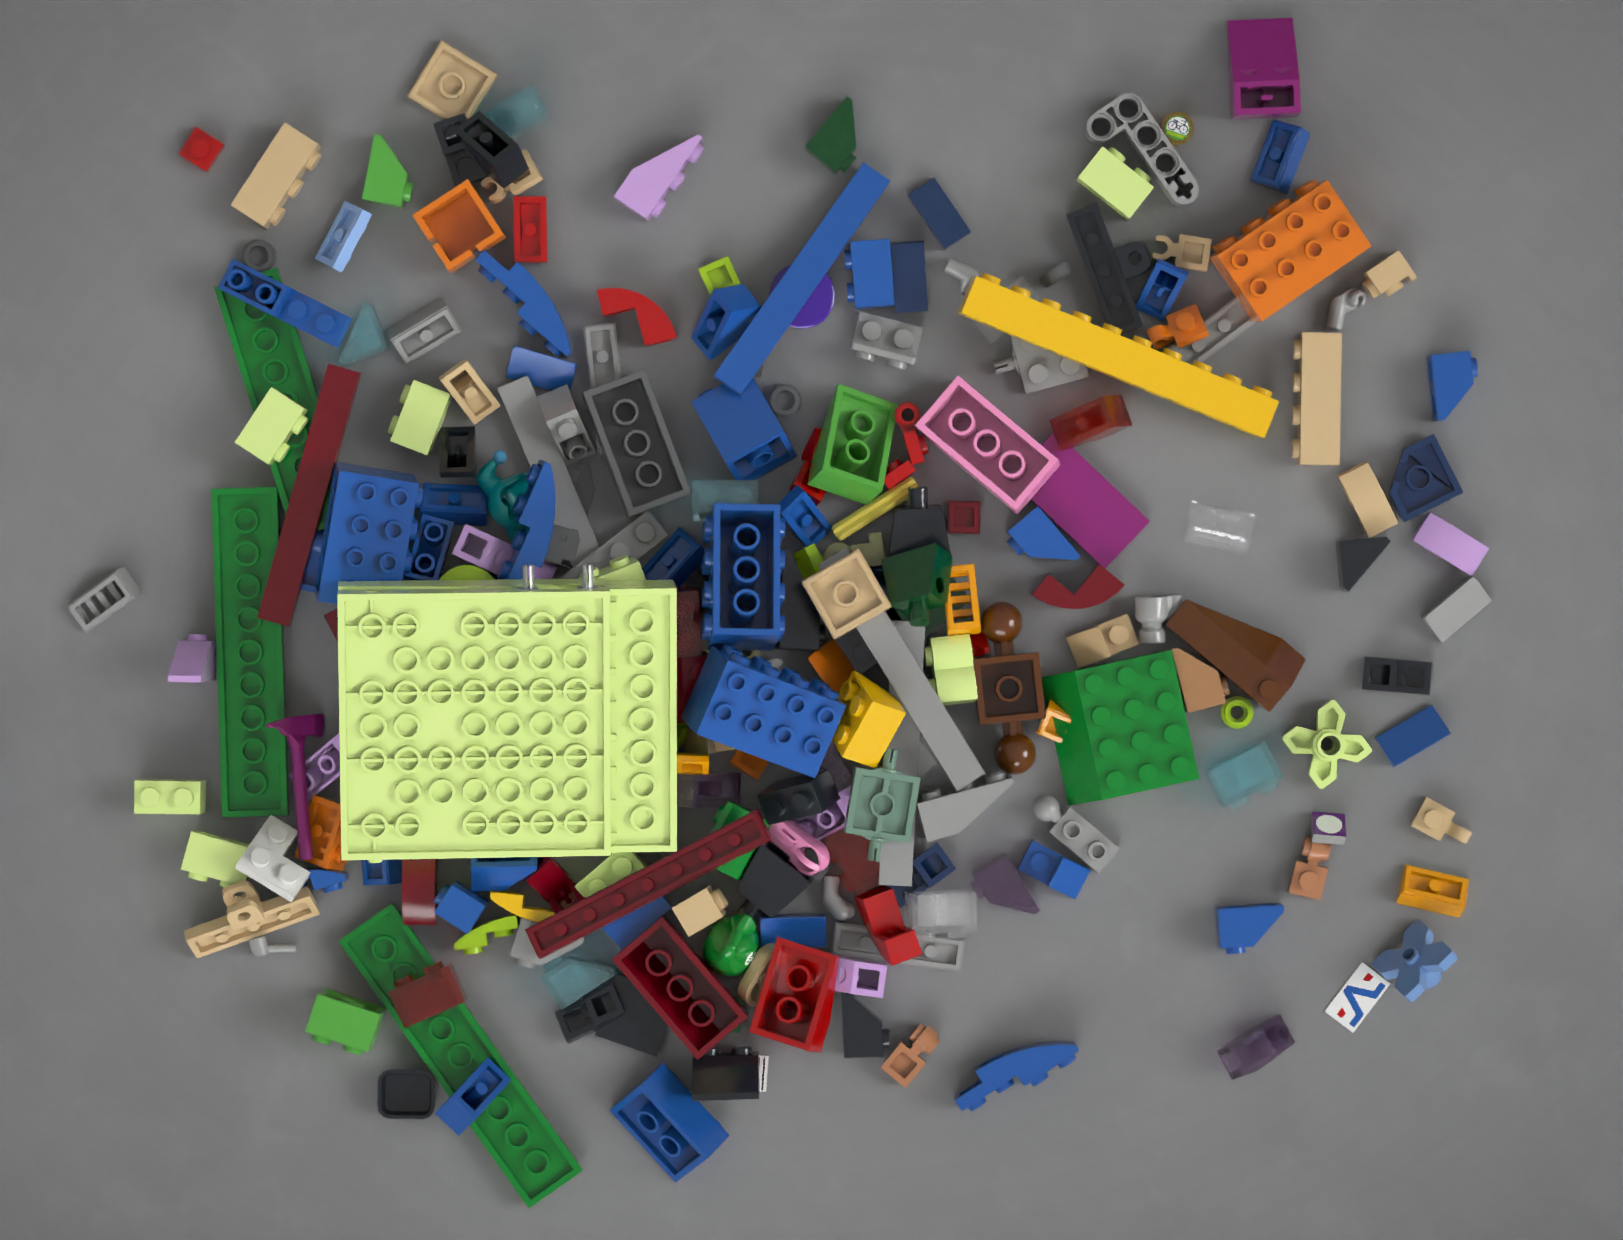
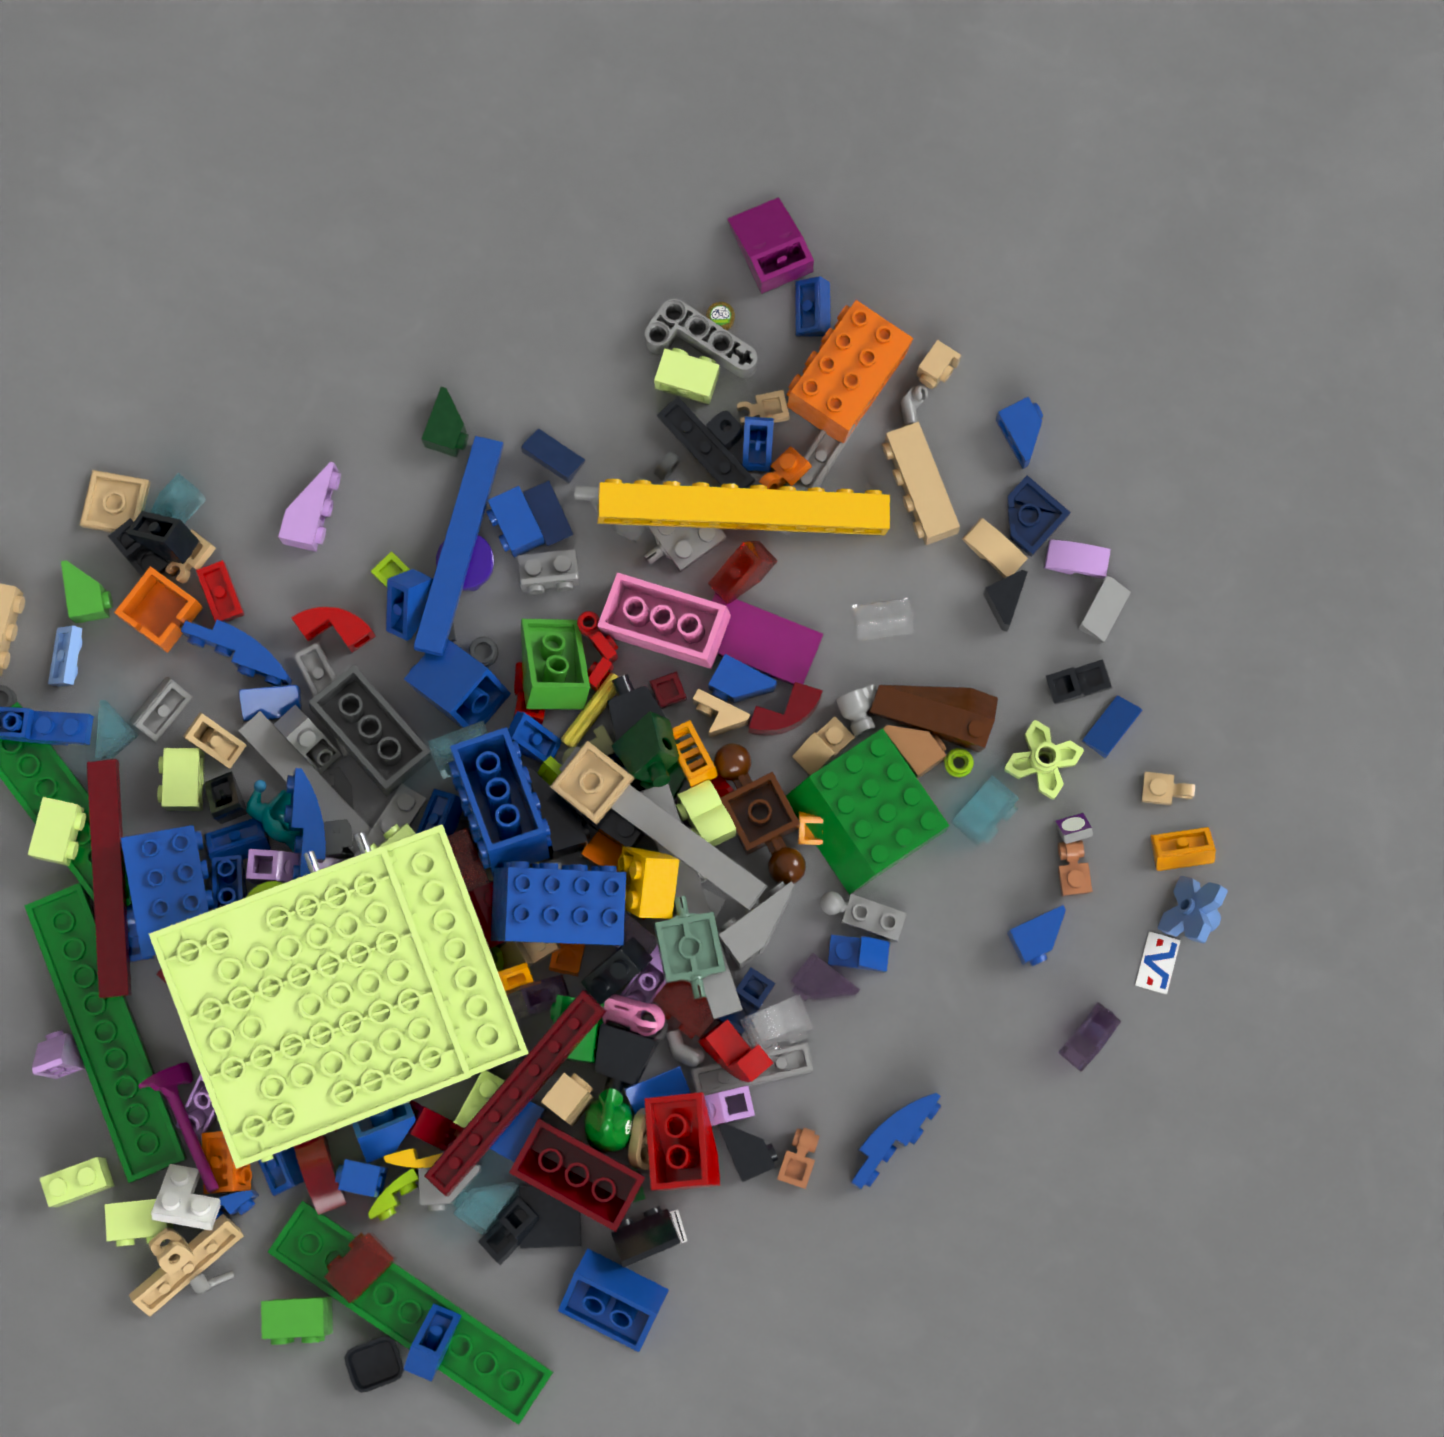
camera: 20 degrees left, 10 degrees down
(1015, 570) = (727, 716): none -> tan slope

